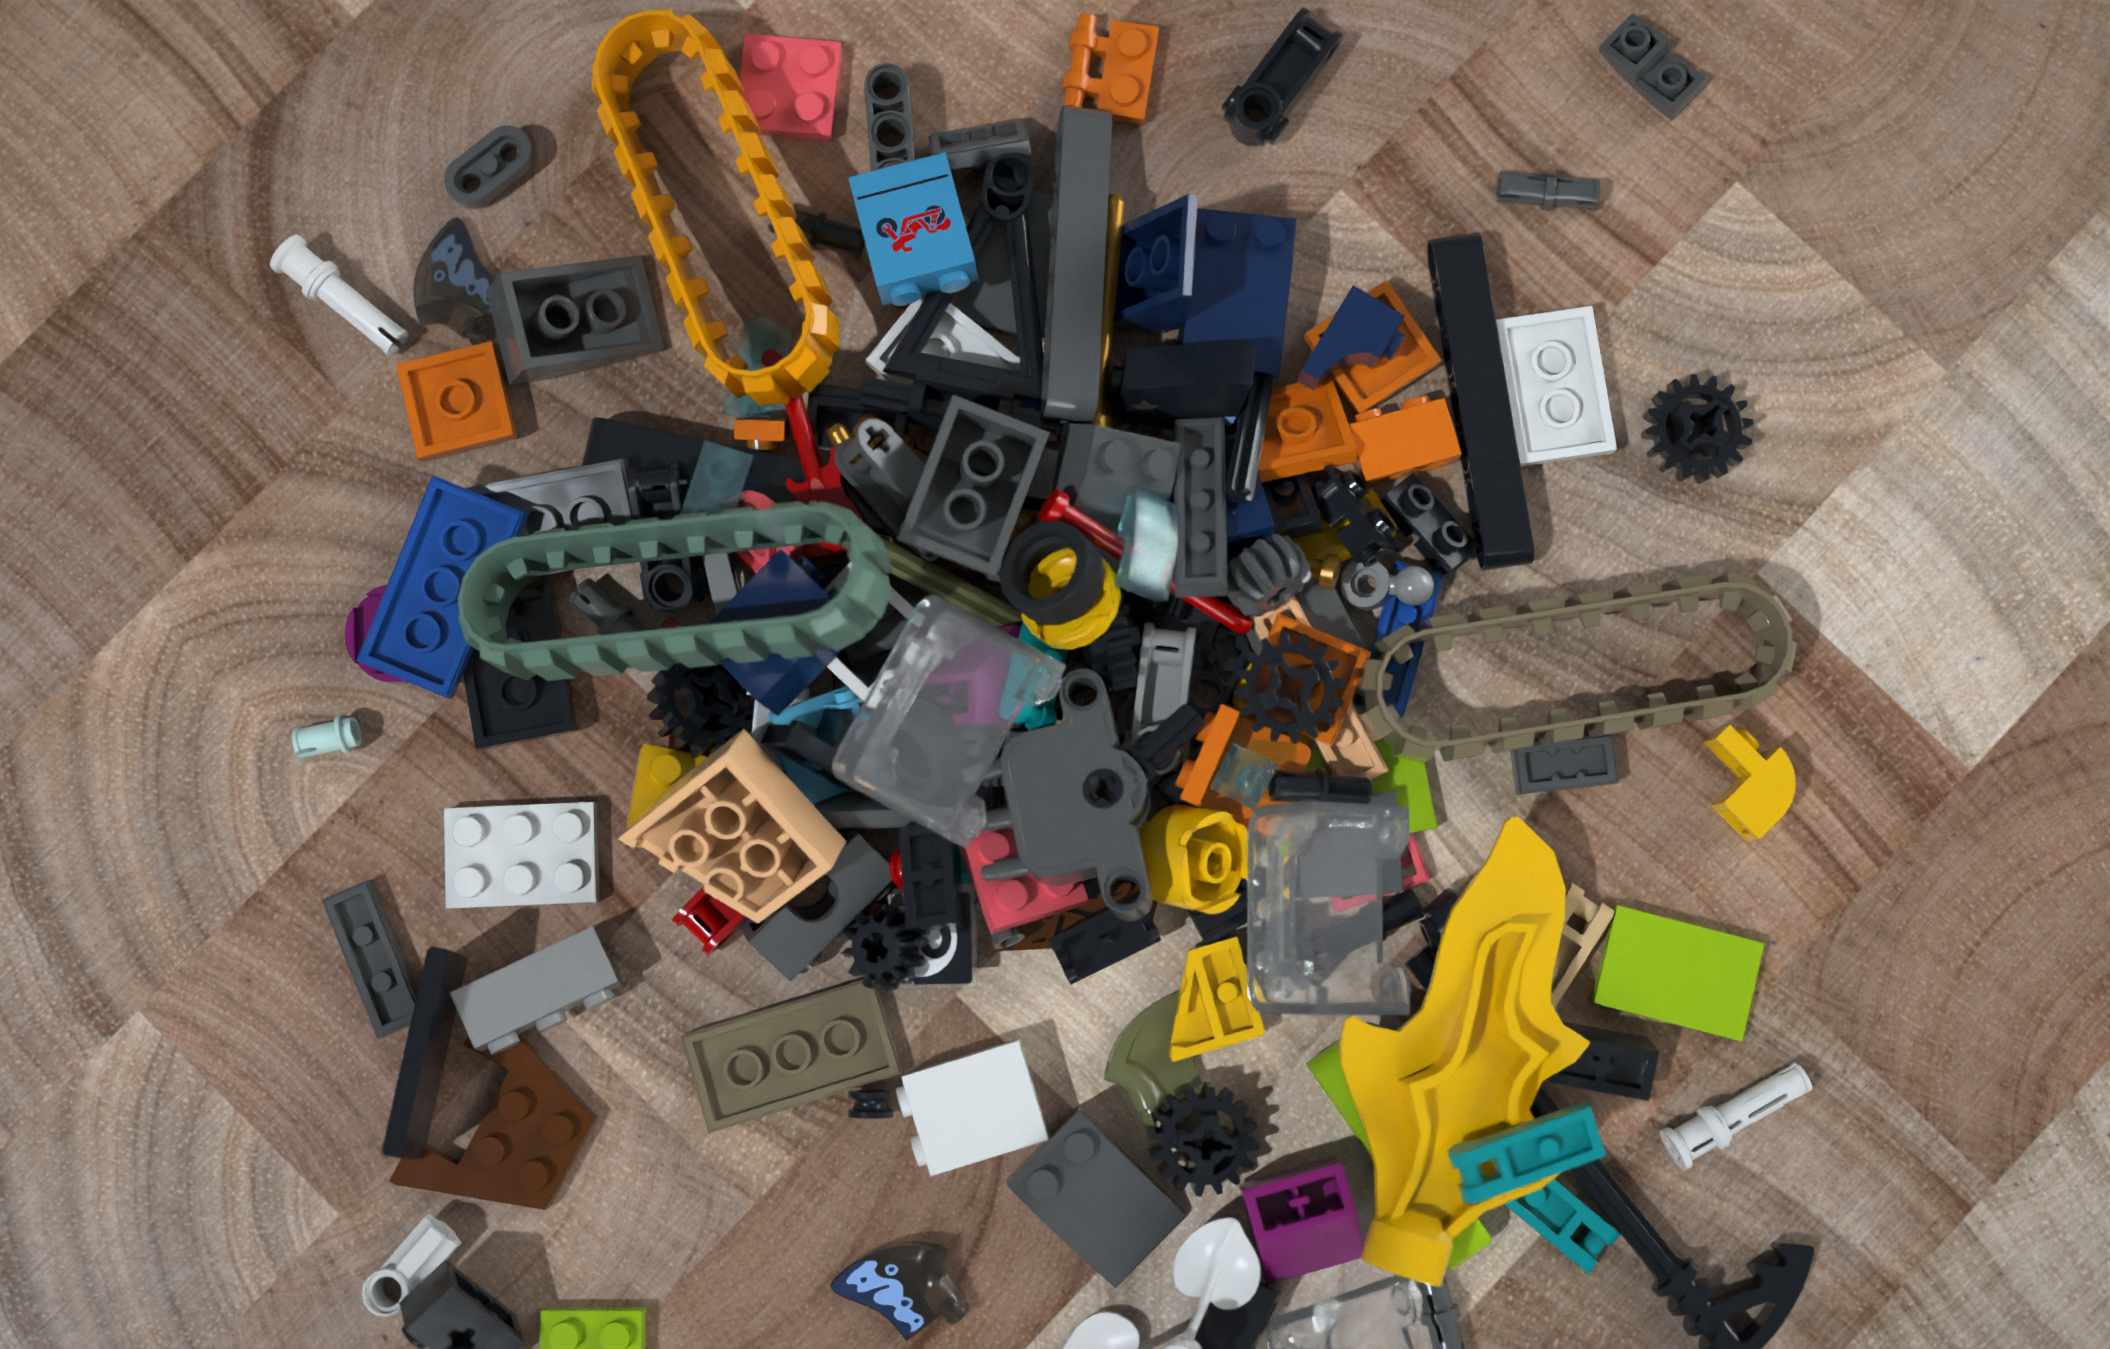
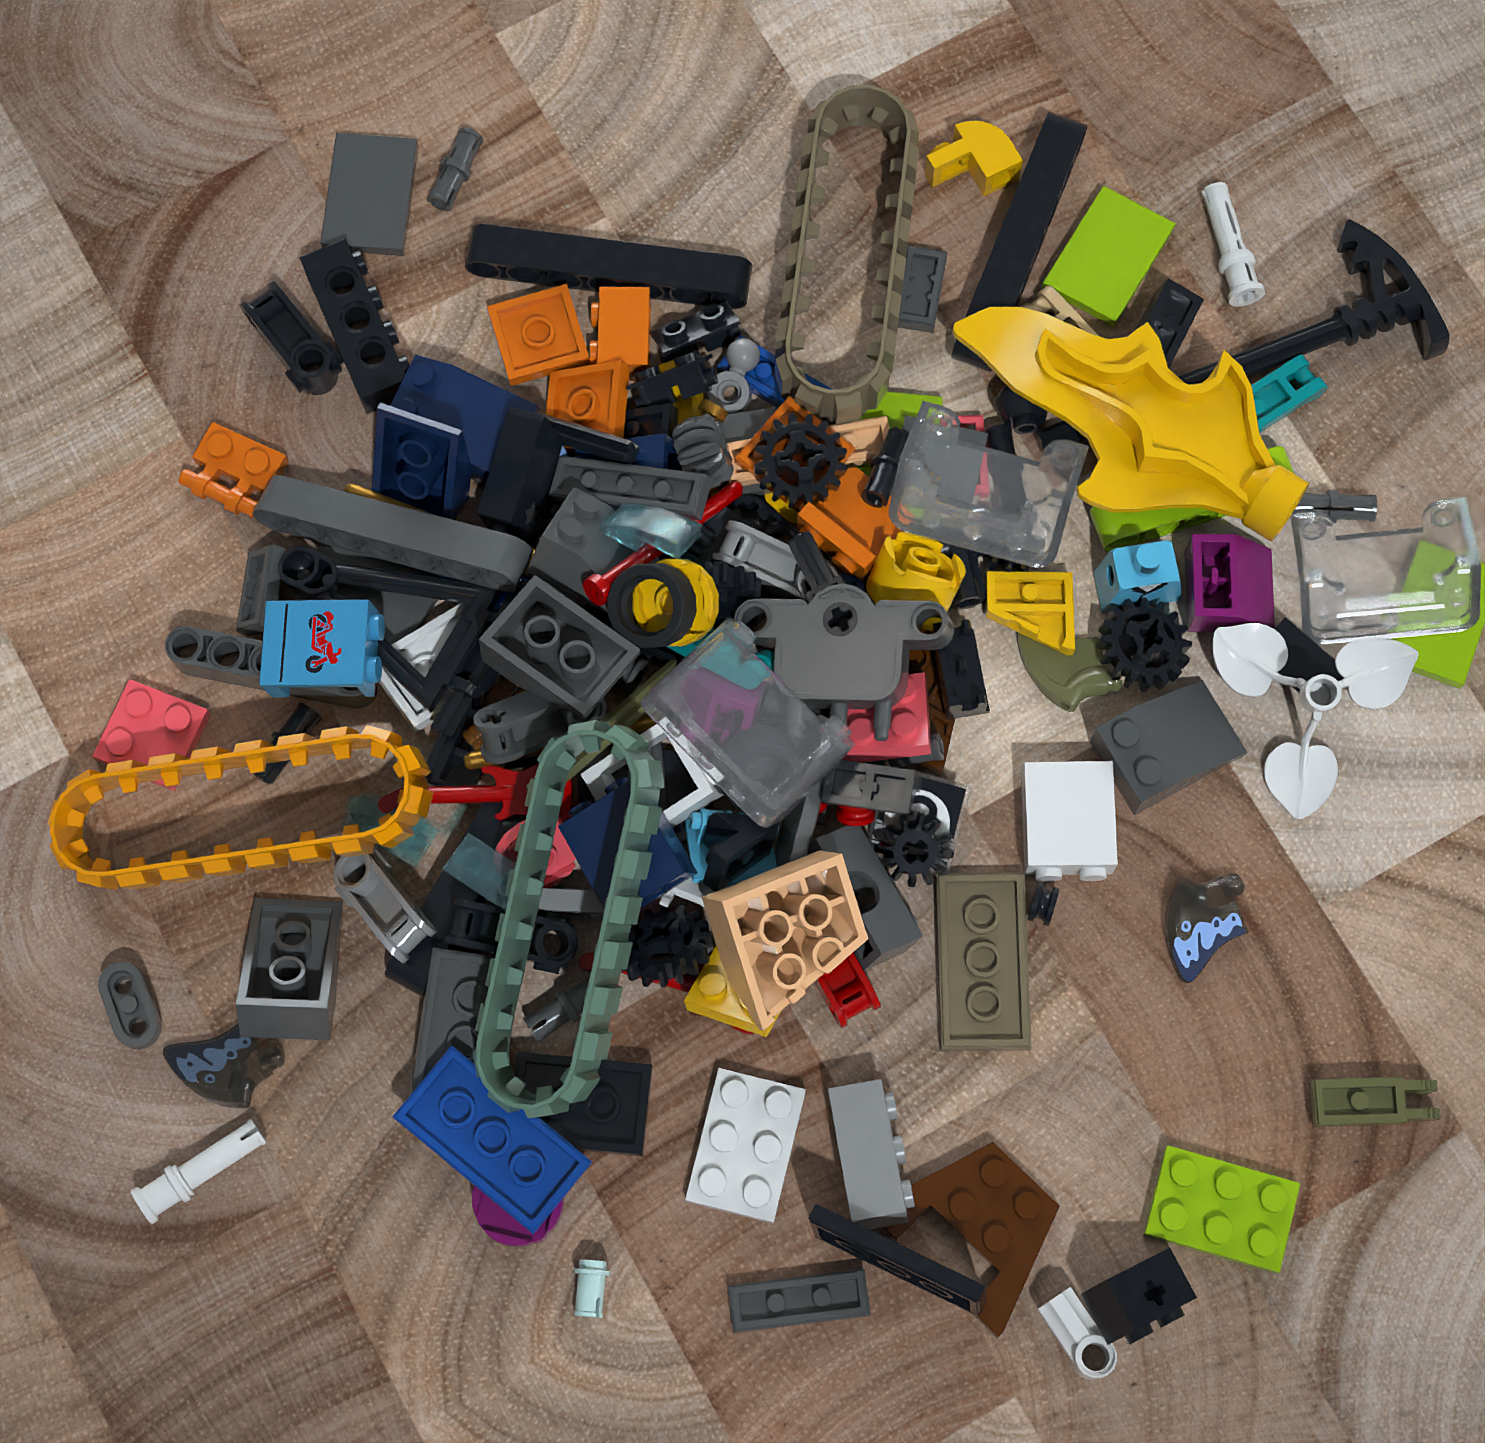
camera: 75 degrees left, 10 degrees down
(456, 401) = (328, 1091): orange plate -> none
(655, 395) = (382, 902): none -> light grey piece
(761, 431) = (445, 832): orange plate -> none
(1243, 776) = (861, 517): clear light blue plate -> none
(1280, 1111) = (1138, 572): none -> medium azure torso
(1356, 335) = (524, 335): dark blue arch -> none
(1367, 88) = (339, 267): none -> black brick
(1488, 105) = (370, 193): none -> dark grey tile
(1527, 1152) = (1222, 384): teal plate -> none
(1556, 386) = (616, 204): white plate -> none
(1649, 67) = (377, 70): dark grey slope -> none
(1690, 865) = (1026, 222): none -> black beam
(1713, 438) = (679, 130): black gear -> none

